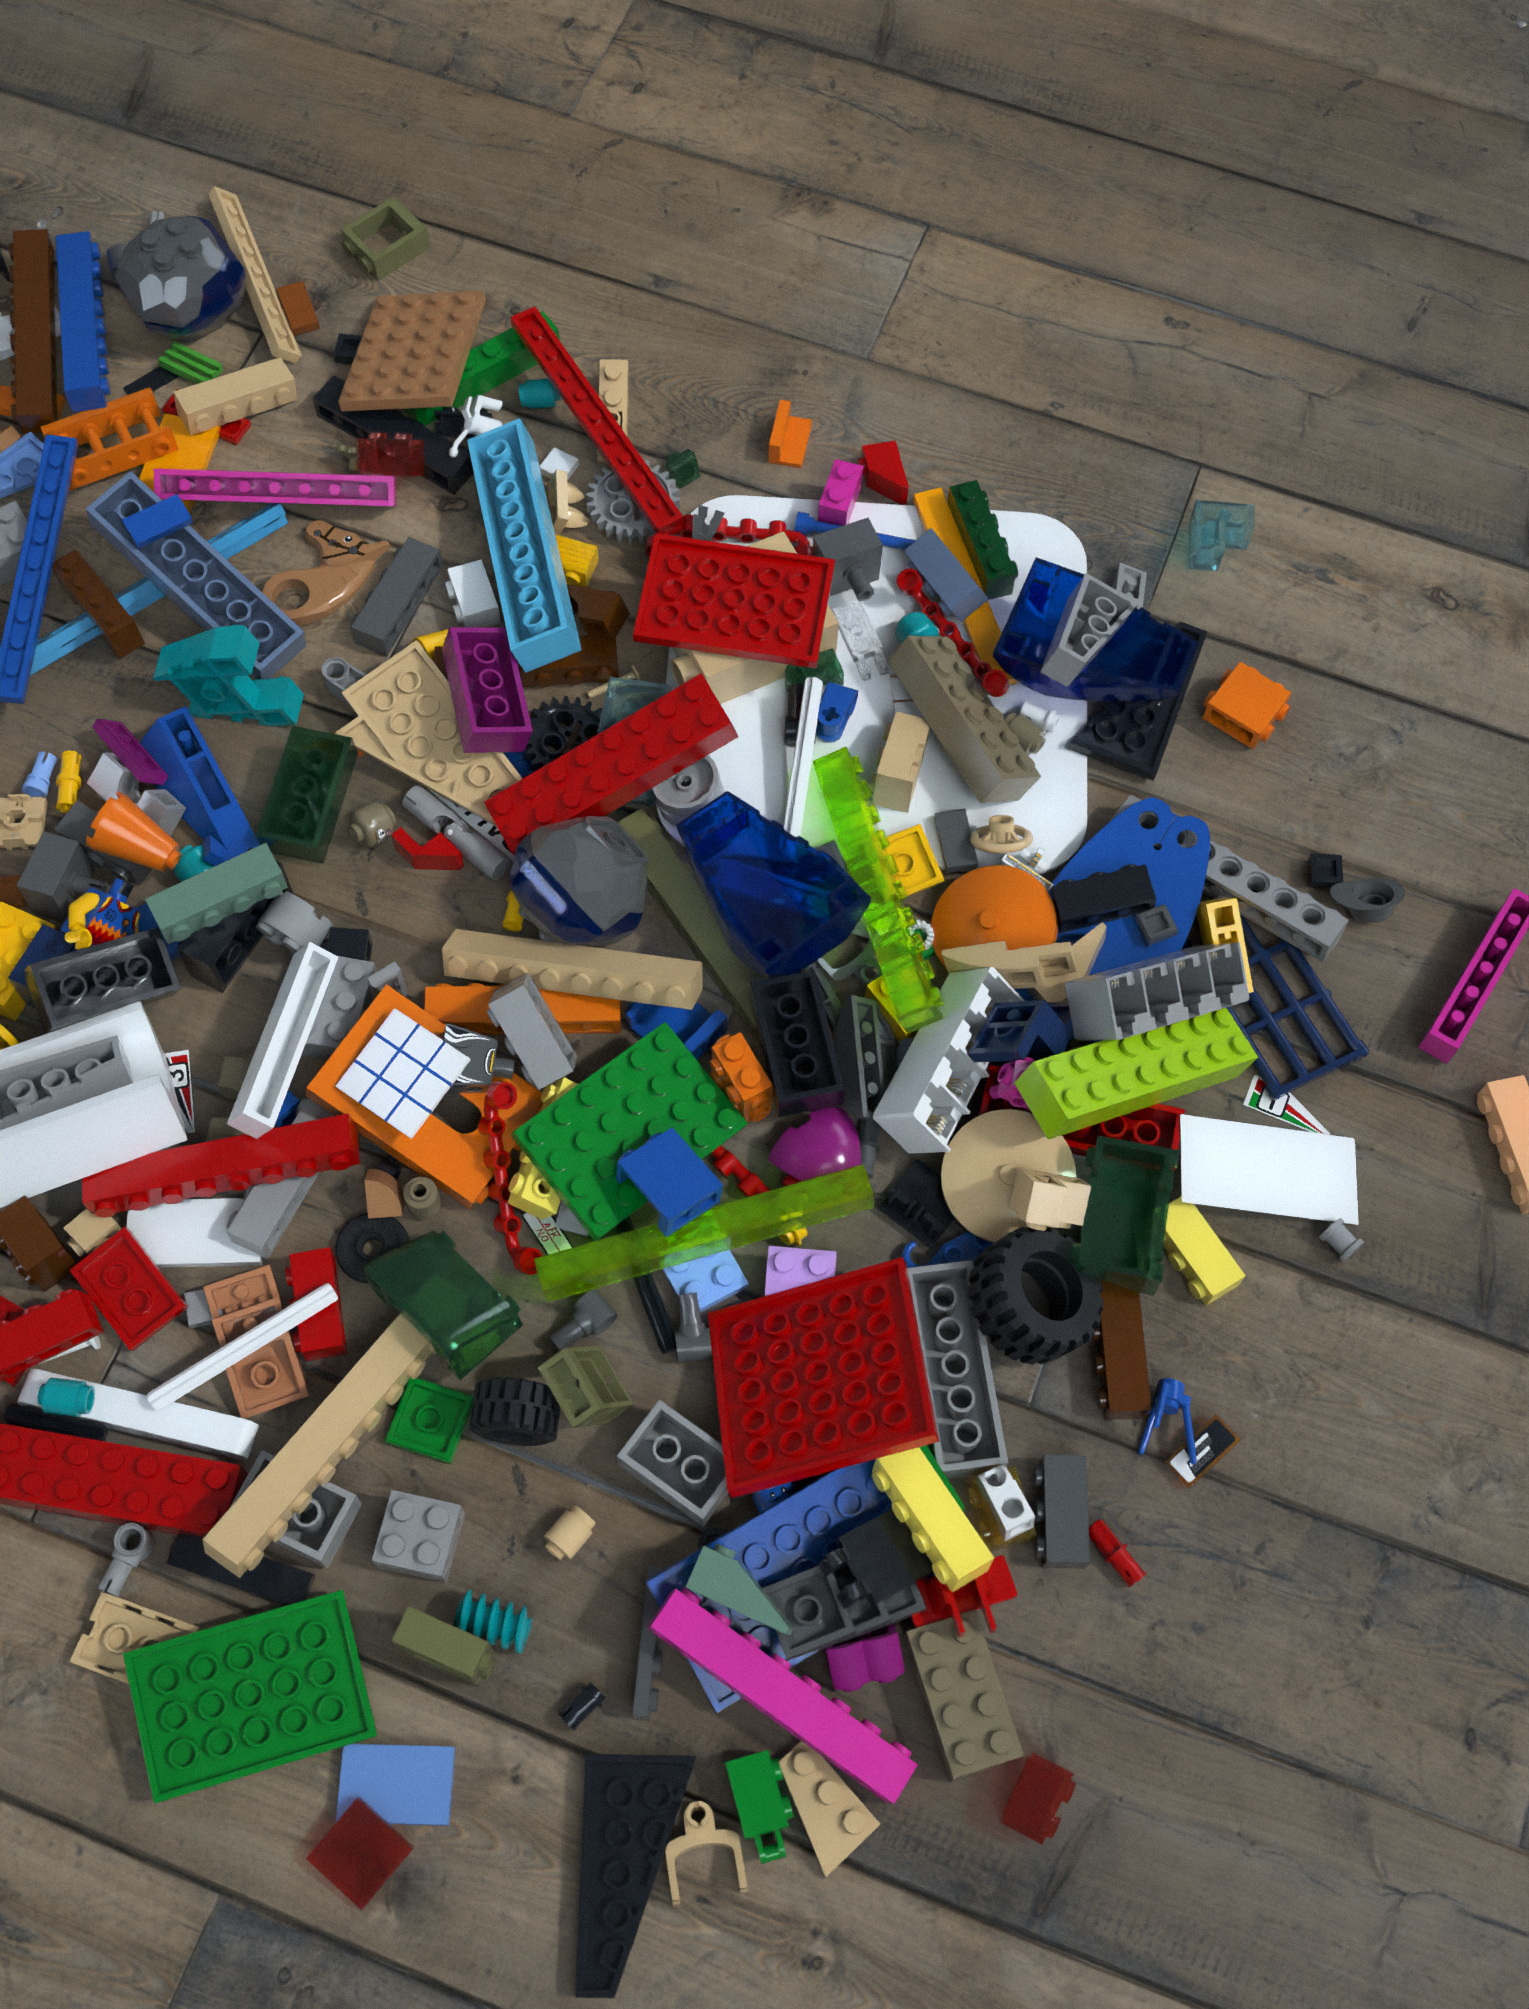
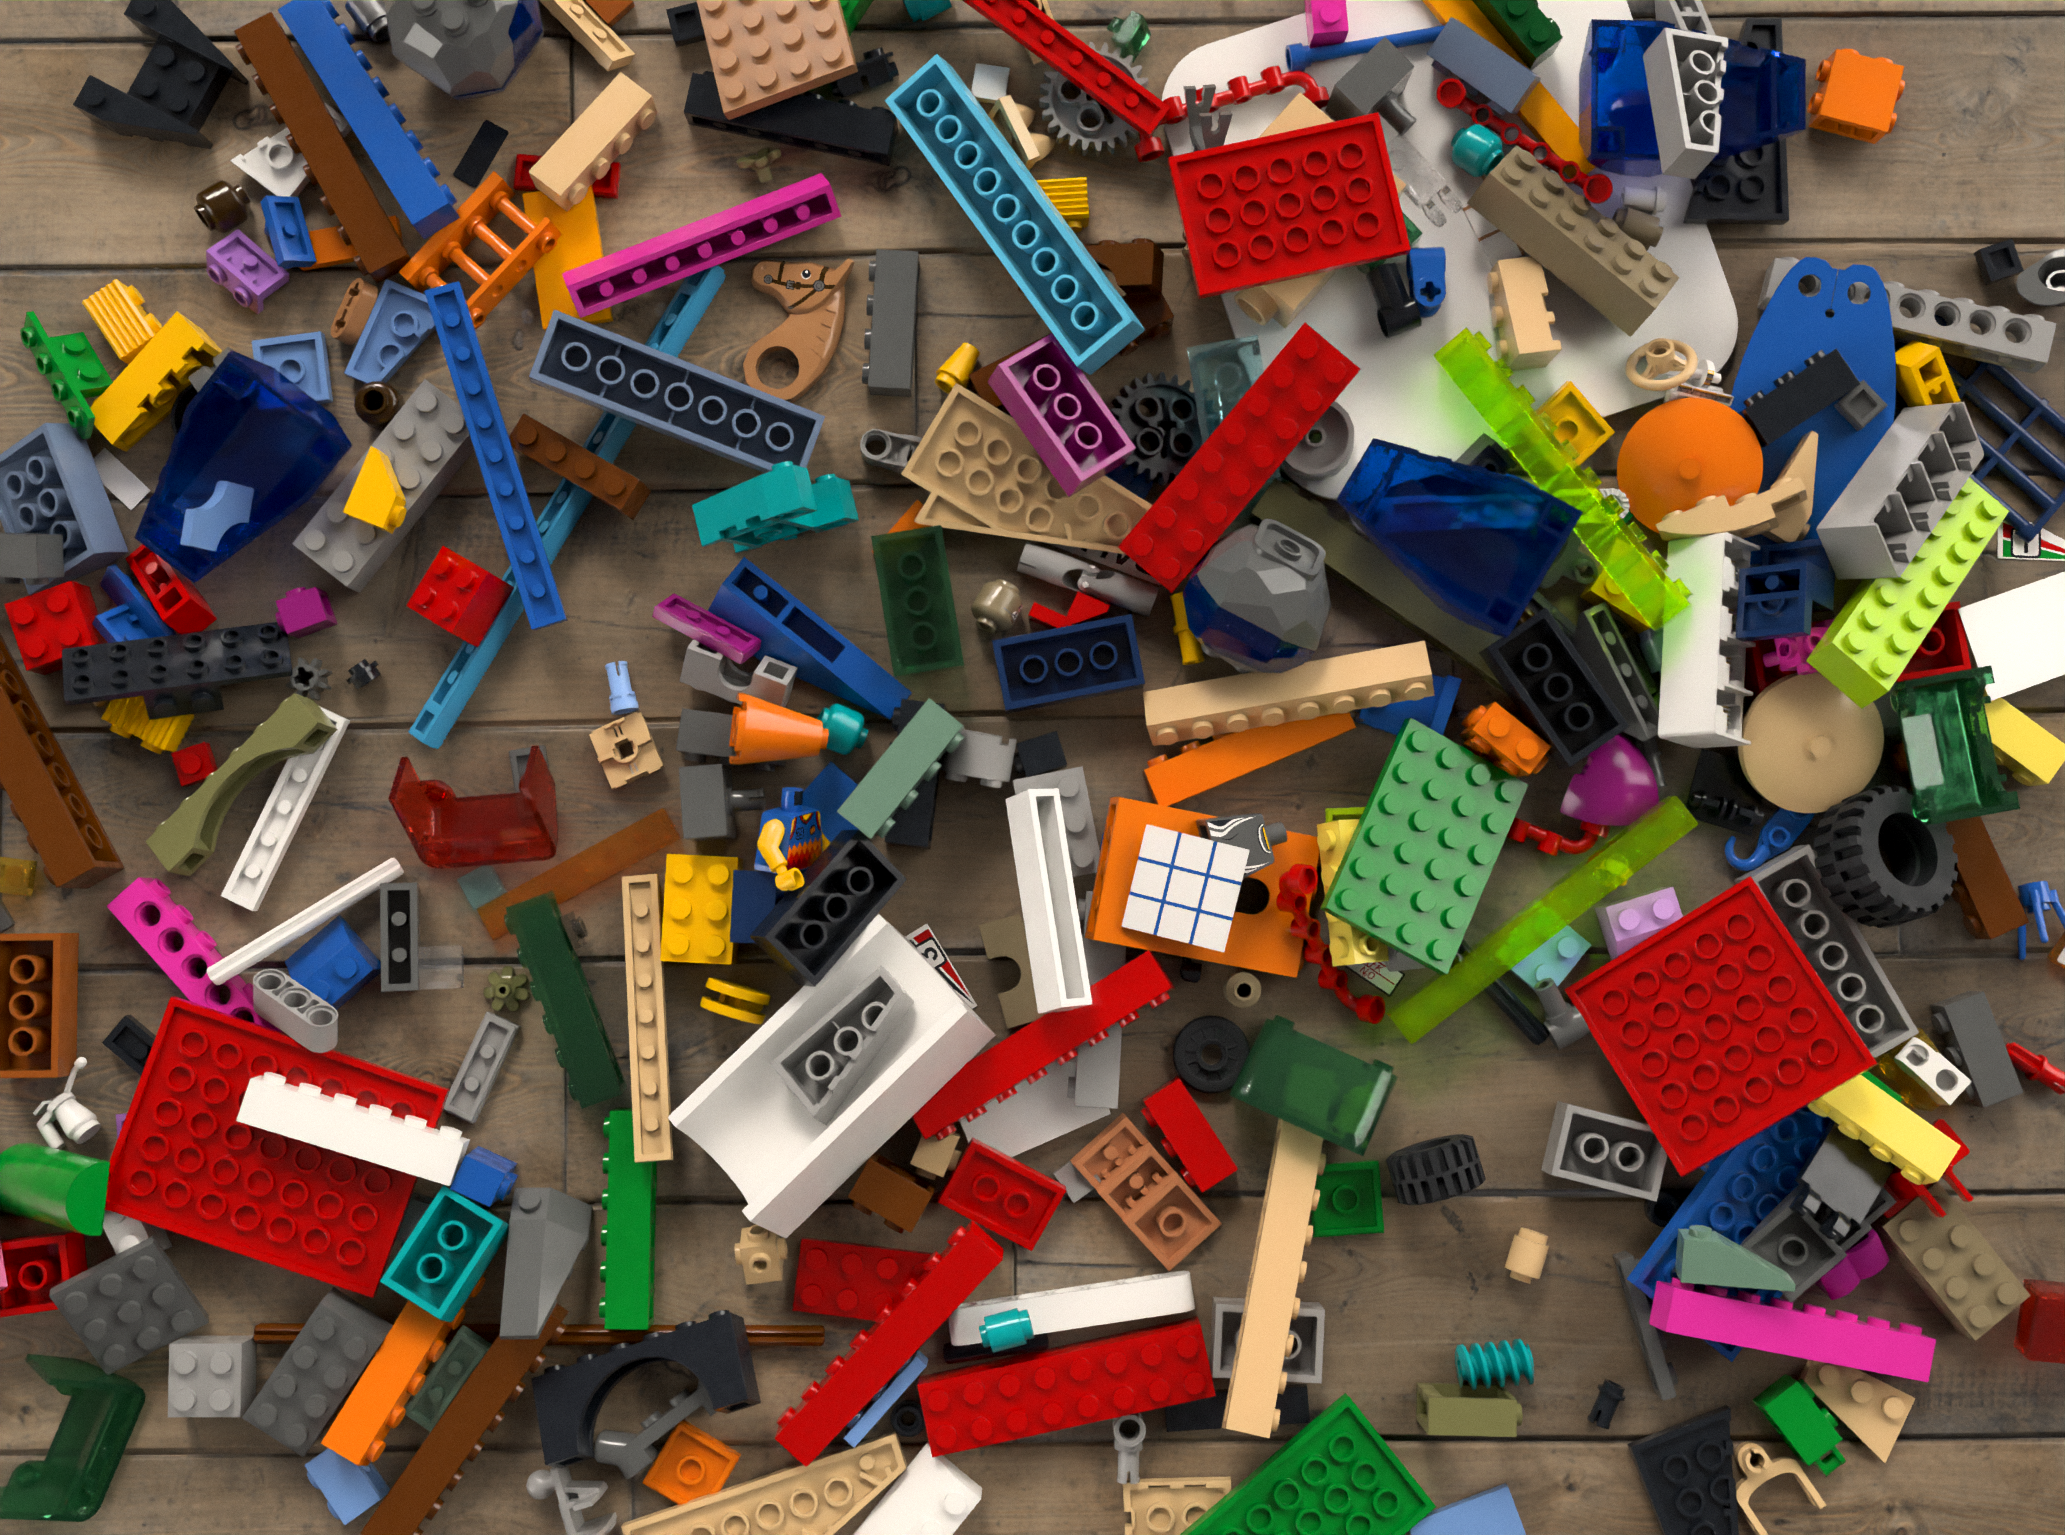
camera: 20 degrees left, 20 degrees up
(68, 780) = (654, 683): yellow pin -> none
(157, 521) = (614, 358): blue tile -> none
(193, 361) = (517, 104): bright green tile -> none
(214, 851) = (859, 710): blue tile -> none
(242, 1347) = (1147, 1211): white axle -> none
(383, 1195) = (1203, 1002): medium nougat brick -> none
(388, 975) = (1105, 784): light grey plate -> none
(391, 456) = (810, 155): clear red brick -> none
(404, 885) = (1068, 663): none -> dark blue brick
(418, 1536) = (1391, 1316): light grey brick -> none
(473, 595) = (975, 290): white brick -> none
(474, 422) = (883, 73): white piece -> none
(532, 1031) = (1283, 783): light grey brick -> none
(590, 1316) = (1454, 1038): dark grey pin -> none
(593, 1399) = (1480, 1112): olive window -> none
(603, 688) = (1180, 324): tan pin -> none
(671, 1179) = (1498, 891): blue panel -> none
(802, 756) = (1422, 358): white axle -> none
(955, 841) = (1609, 382): dark grey tile -> none
(1049, 1199) = (1872, 762): tan brick -> none

